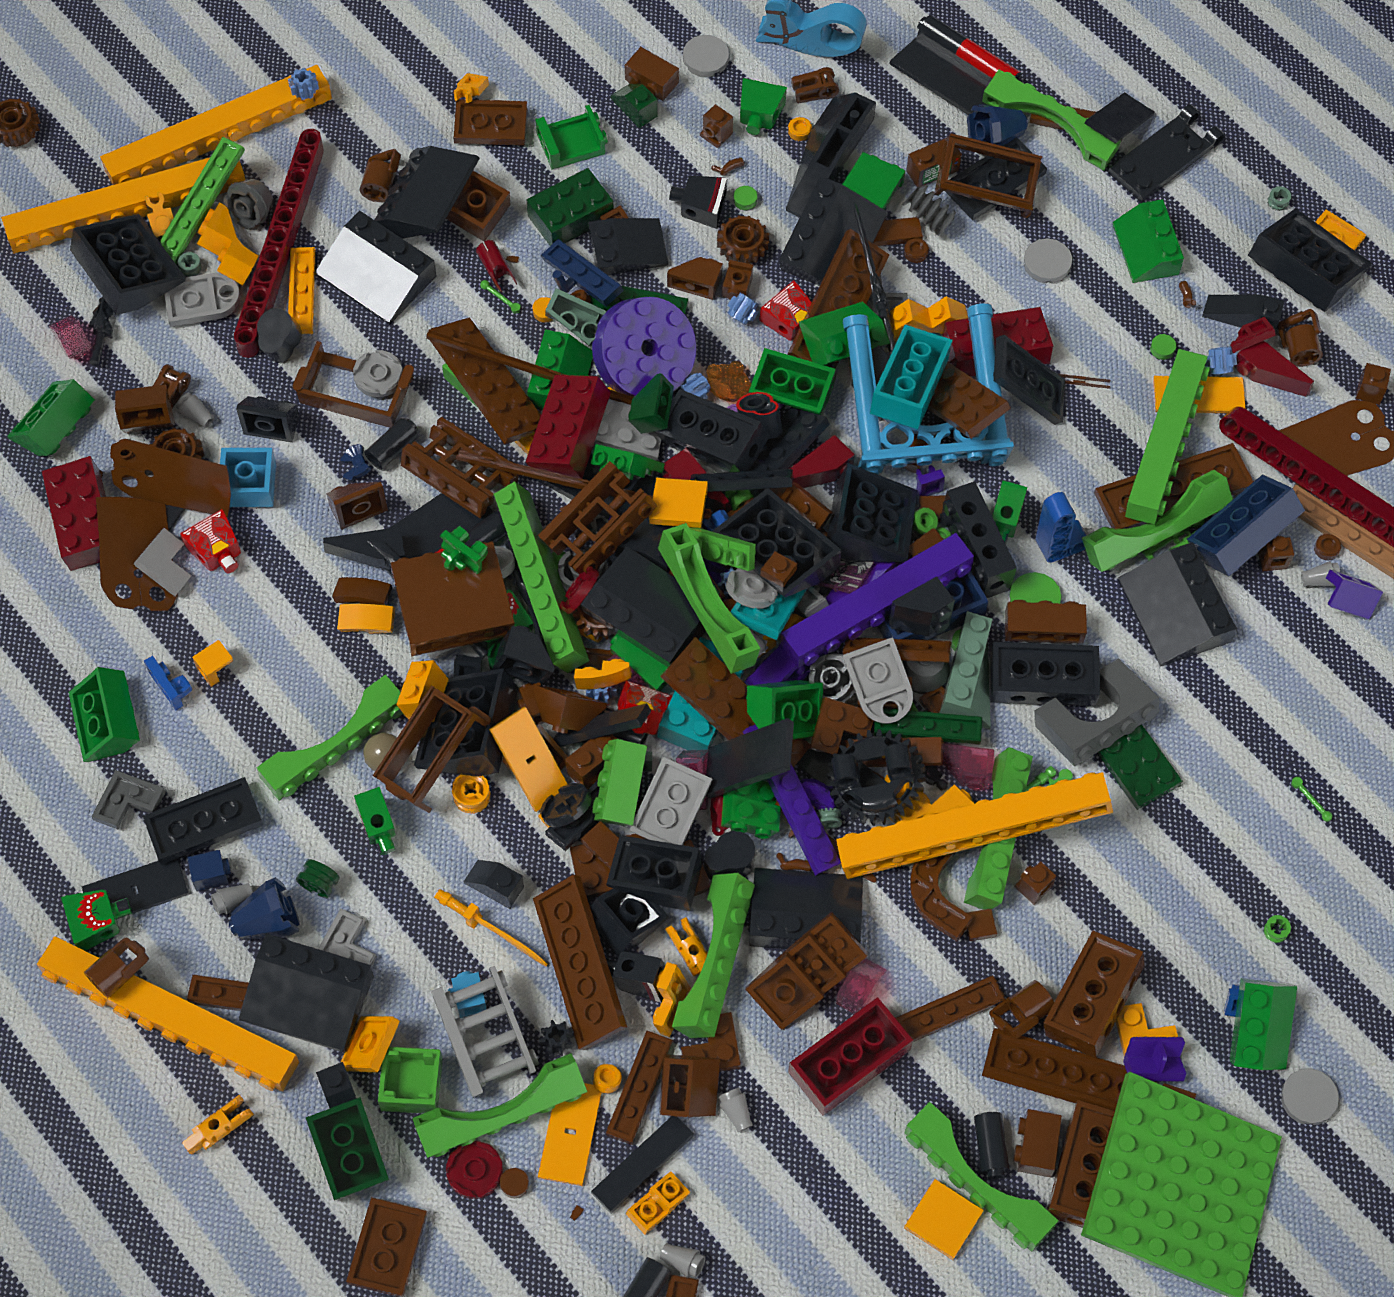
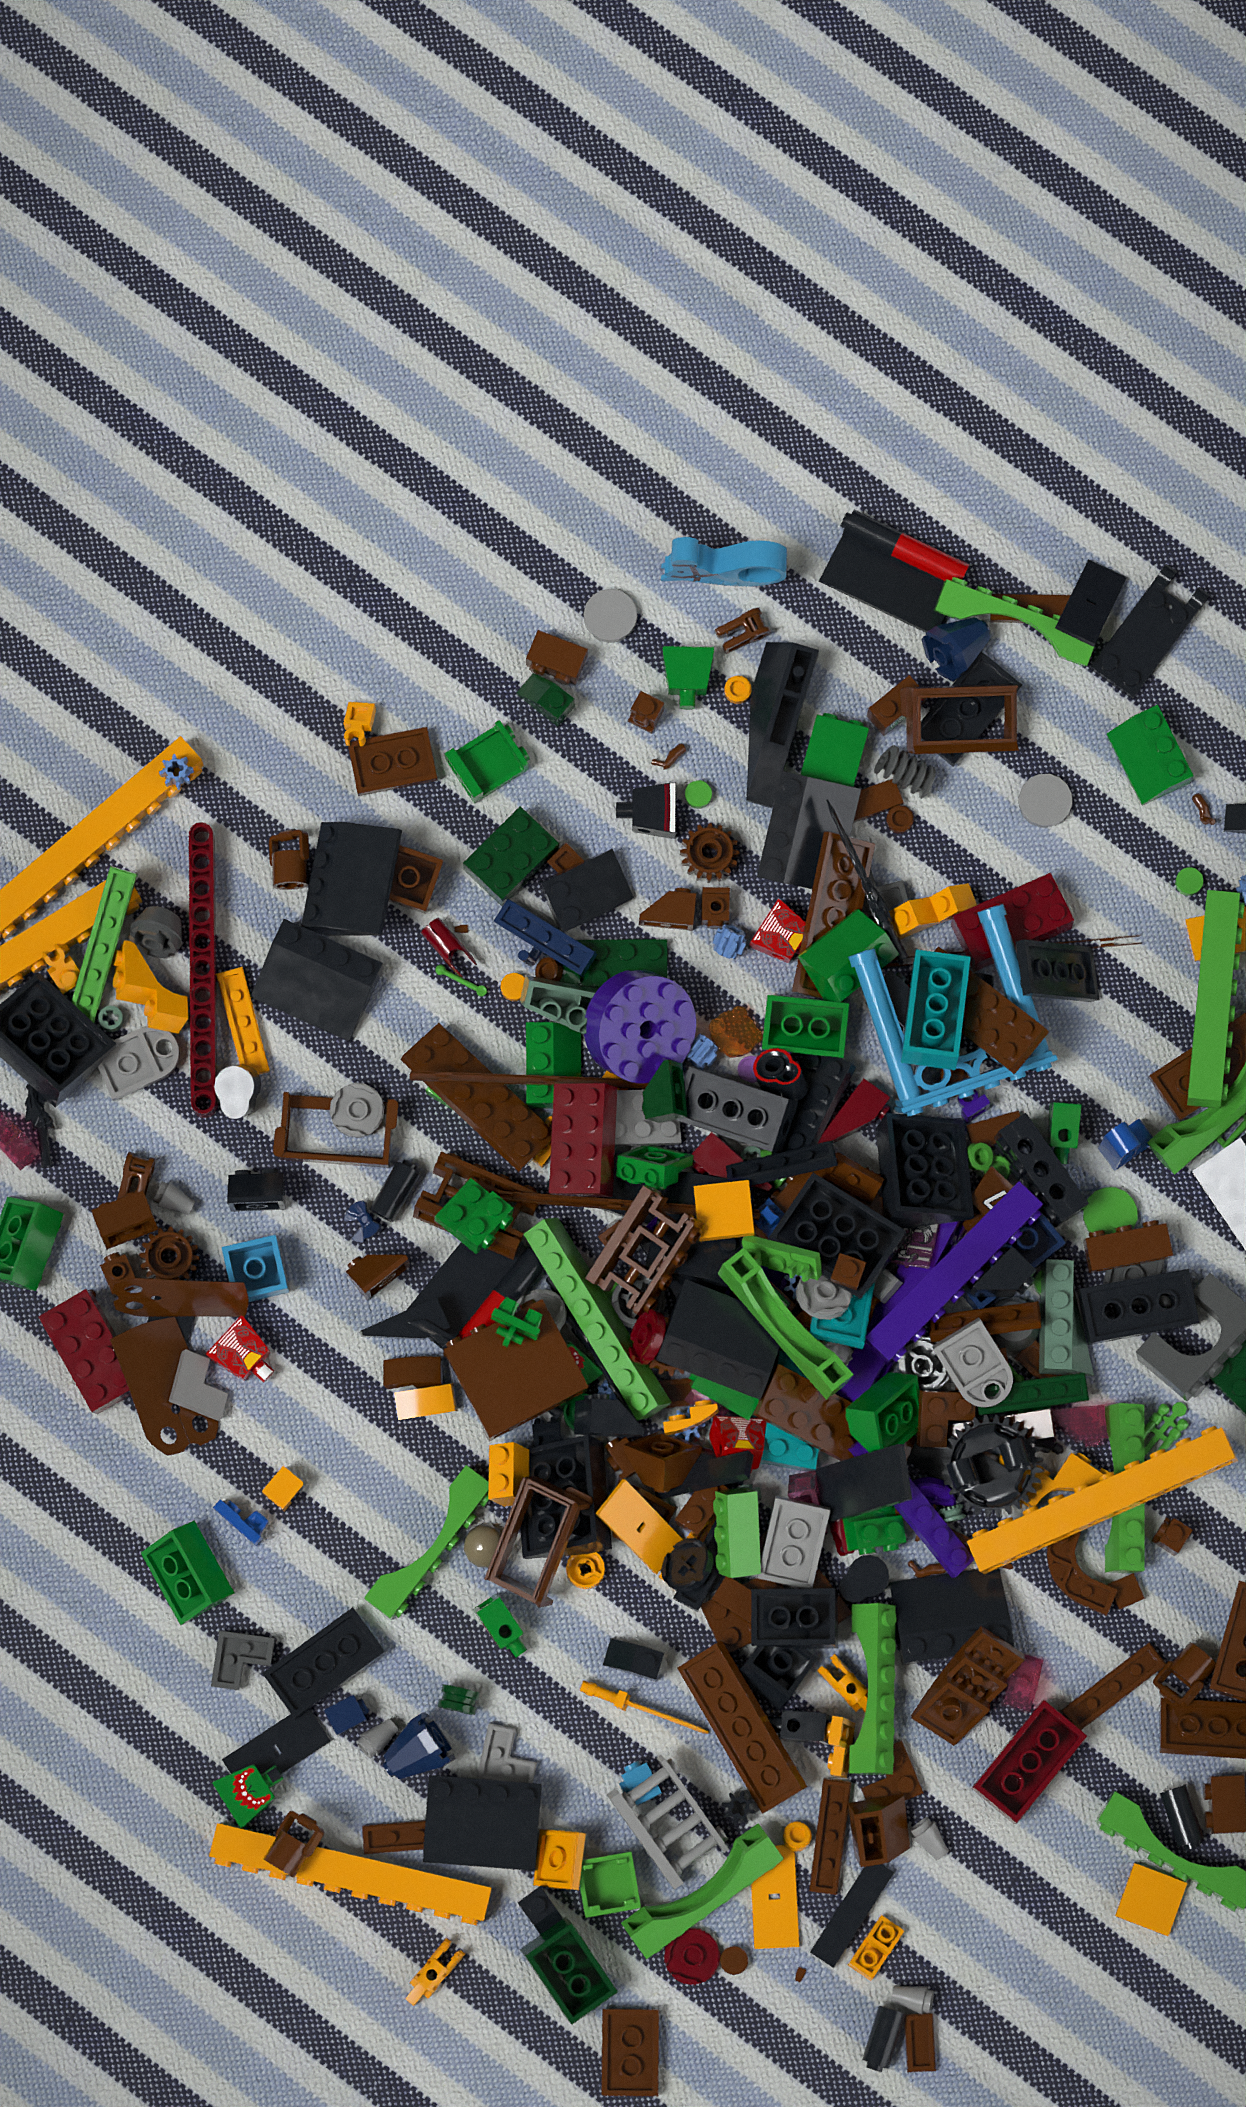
camera: 15 degrees left, 15 degrees up
(453, 466) = (475, 1216): none -> green plate

